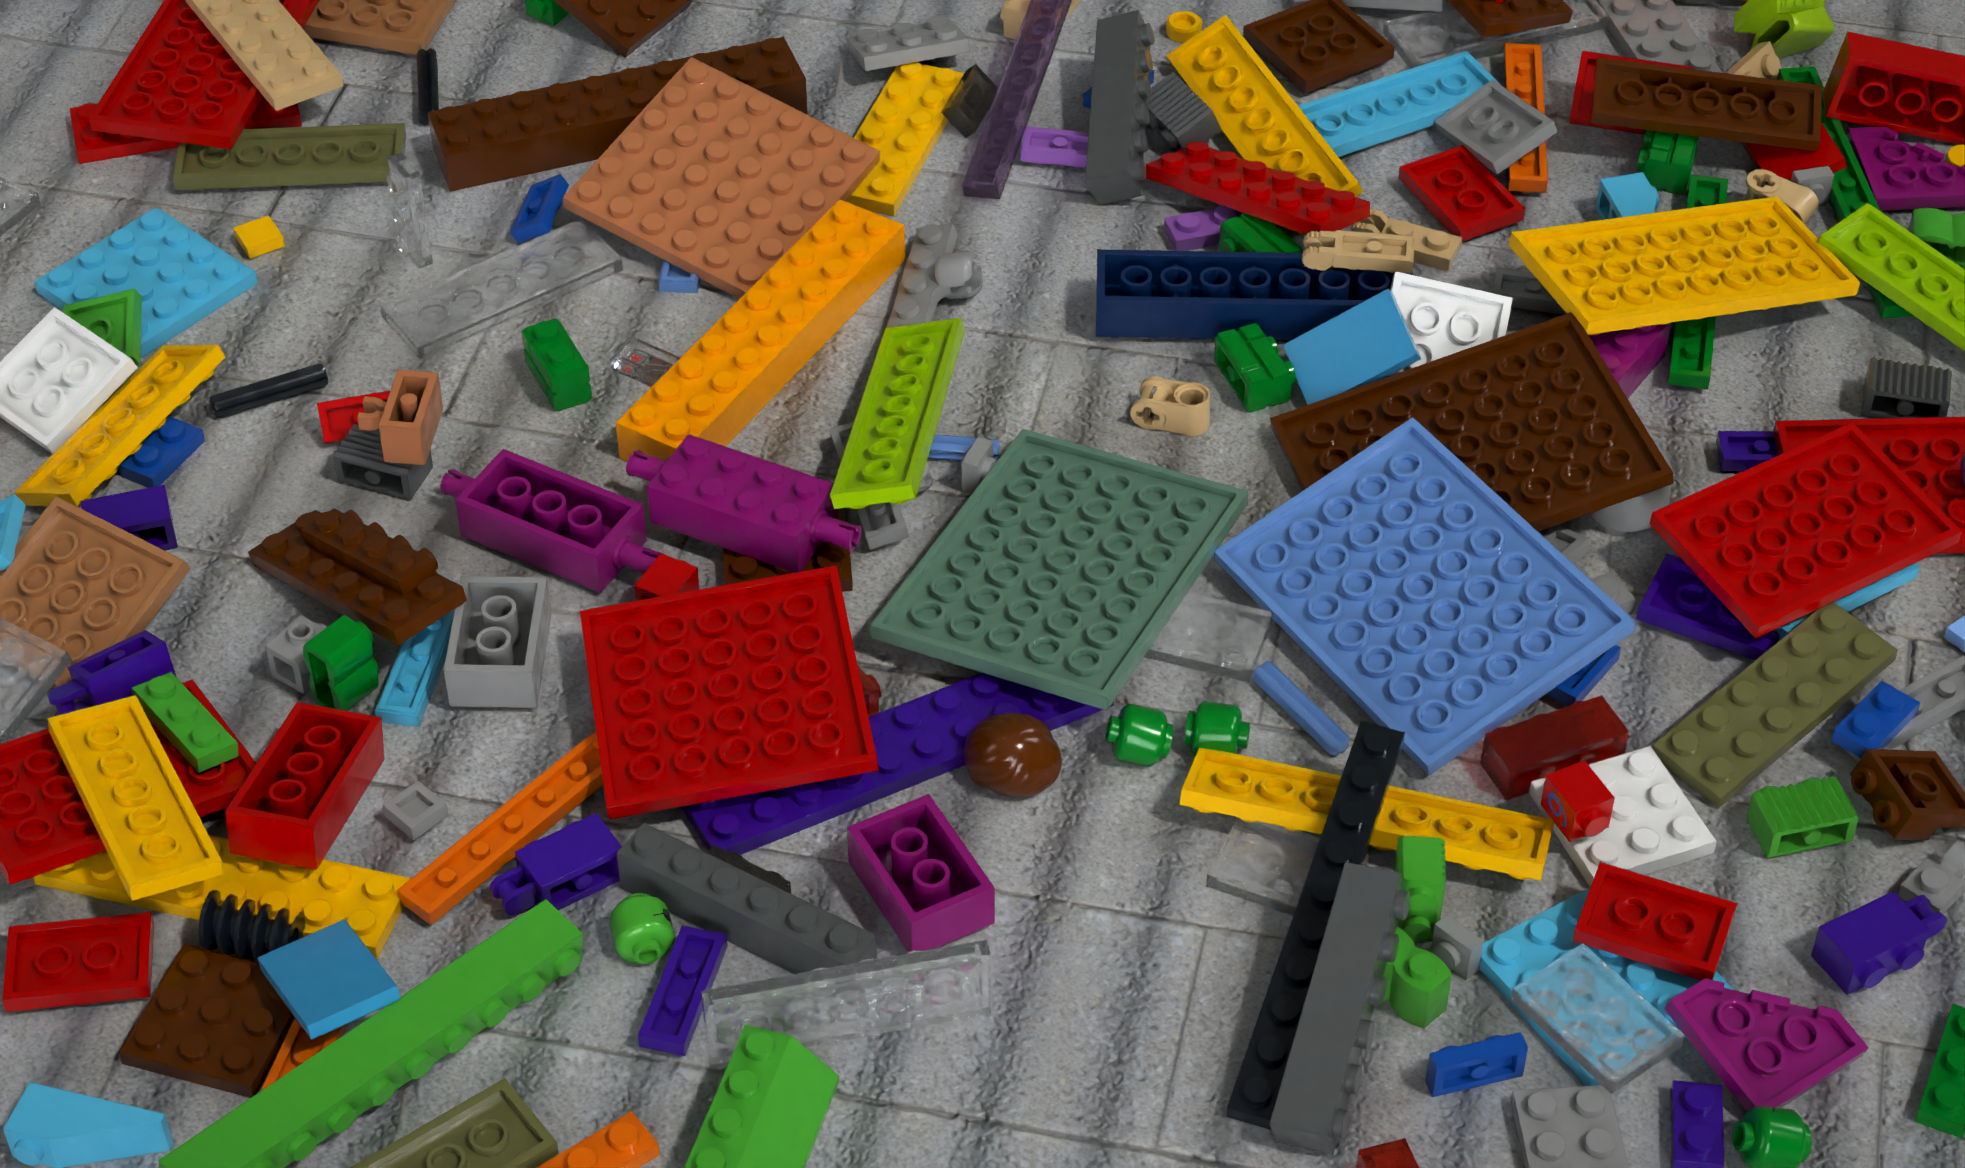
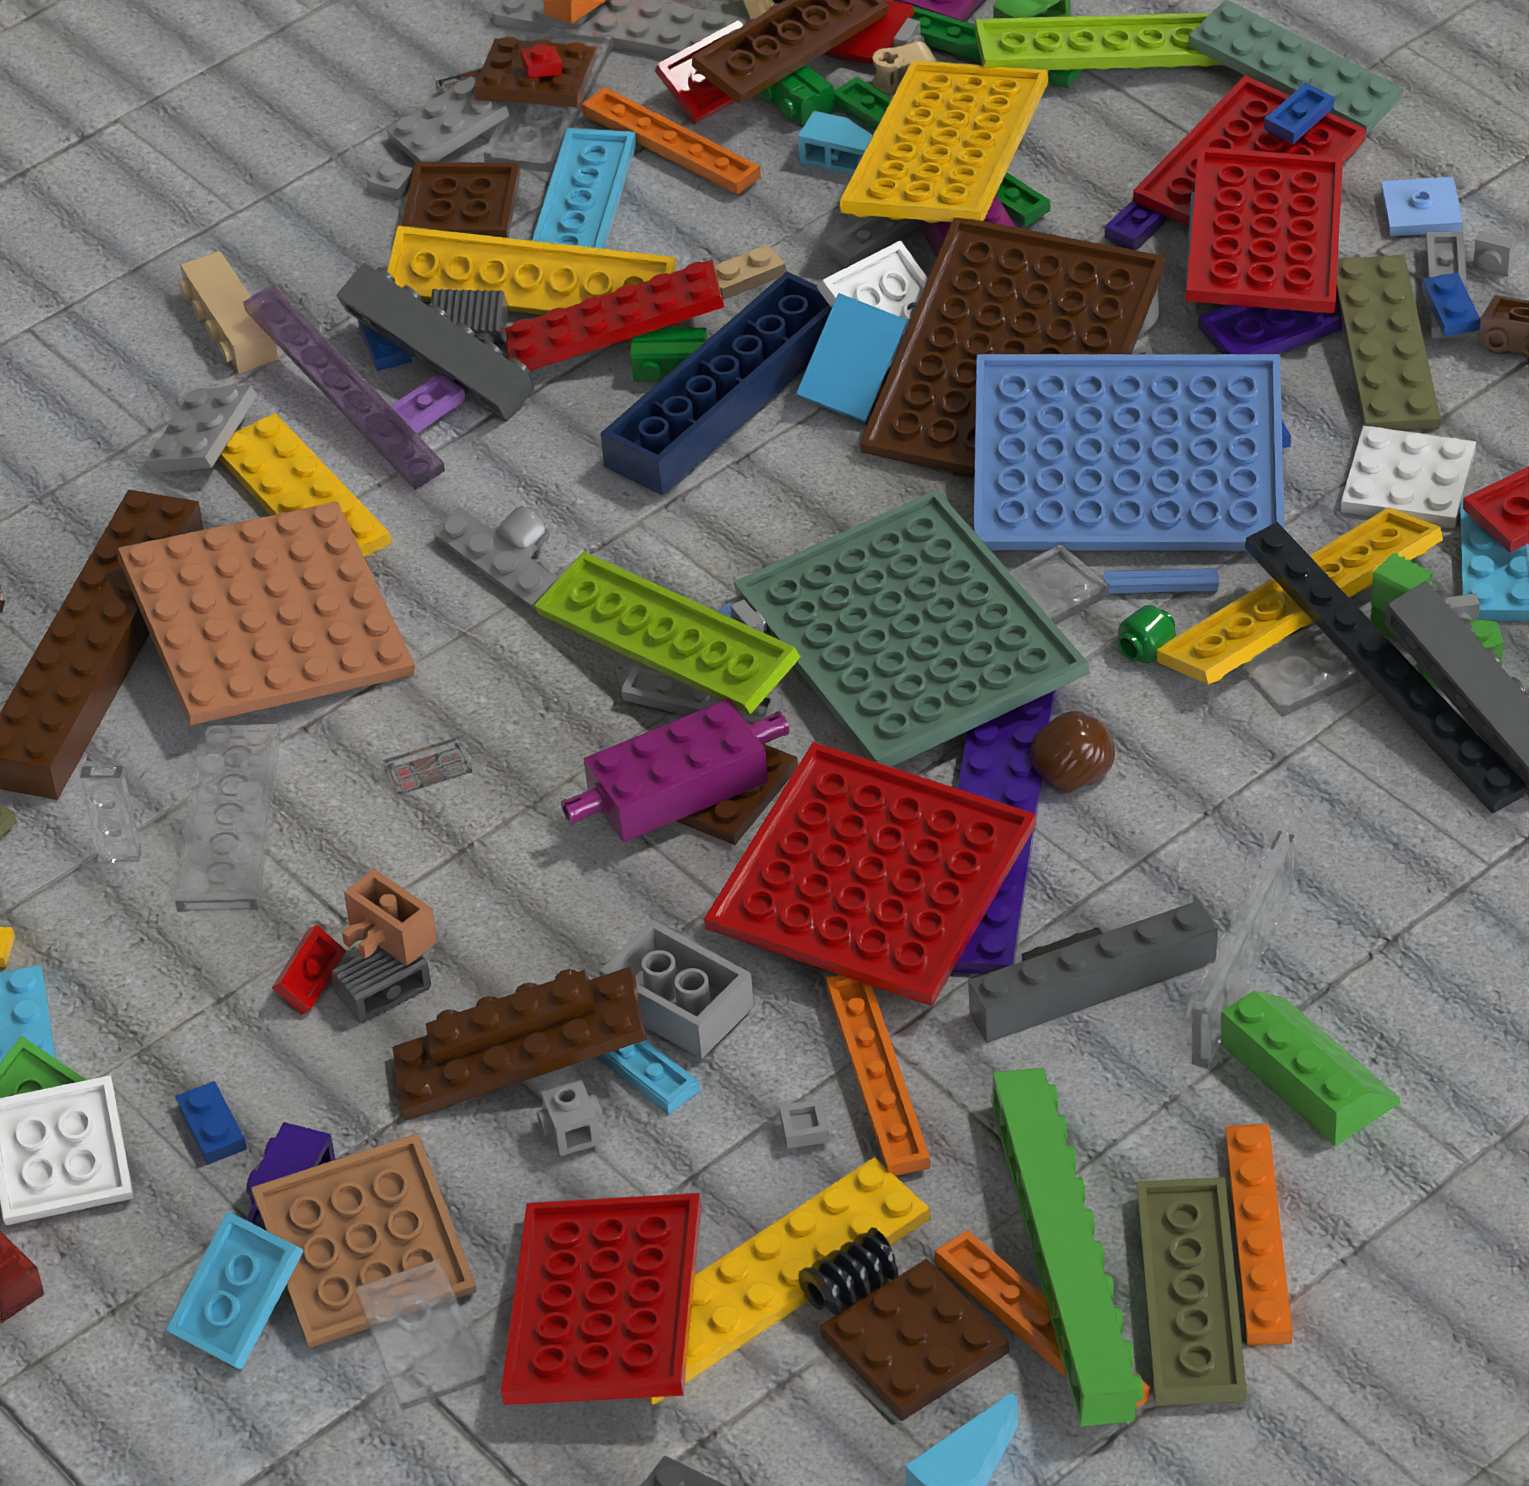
camera: 50 degrees left, 0 degrees up
(78, 962) = (779, 1400): red plate -> none
(112, 673) = (490, 1245): dark purple brick -> none
(121, 424) = (166, 1130): yellow plate -> none
(134, 798) = (665, 1271): yellow plate -> none
(185, 722) = (587, 1218): bright green plate -> none
(268, 390) = (205, 1019): black axle -> none
(305, 786) = (738, 1166): red brick -> none
(328, 979) = (964, 1233): dark azure tile -> none
(341, 664) = (619, 1093): green brick -> none
(539, 209) = (161, 746): blue plate -> none
(551, 520) = (567, 898): magenta brick -> none
(556, 364) = (376, 818): green brick -> none
(560, 867) = (949, 1057): dark purple brick -> none
(641, 928) = (1053, 1041): bright green head -> none
(666, 577) = (706, 866): red brick -> none
(677, 280) = (332, 706): medium blue tile -> none
(678, 997) = (1133, 1045): dark purple plate -> none
(767, 334) = (478, 681): light orange brick -> none
(921, 875) = (1150, 855): magenta brick -> none
(970, 101) = (314, 427): clear smoke plate -> none
(1139, 735) = (1115, 675): green head -> none
(1176, 406) = (792, 489): tan piece -> none
(1183, 26) = (347, 263): yellow tile -> none
(1197, 228) = (603, 375): medium lavender plate -> none
(1254, 367) = (794, 425): green brick -> none
(1358, 251) = (765, 292): tan hinge -> none
(1461, 193) = (718, 218): red plate -> none
(1495, 126) = (677, 157): light grey plate -> none
(1550, 743) = (1321, 471): clear red brick -> none
(1577, 801) = (1399, 480): red brick -> none
(1801, 816) = (1492, 389): bright green brick -> none
(1905, 390) = (1158, 117): dark grey brick -> none

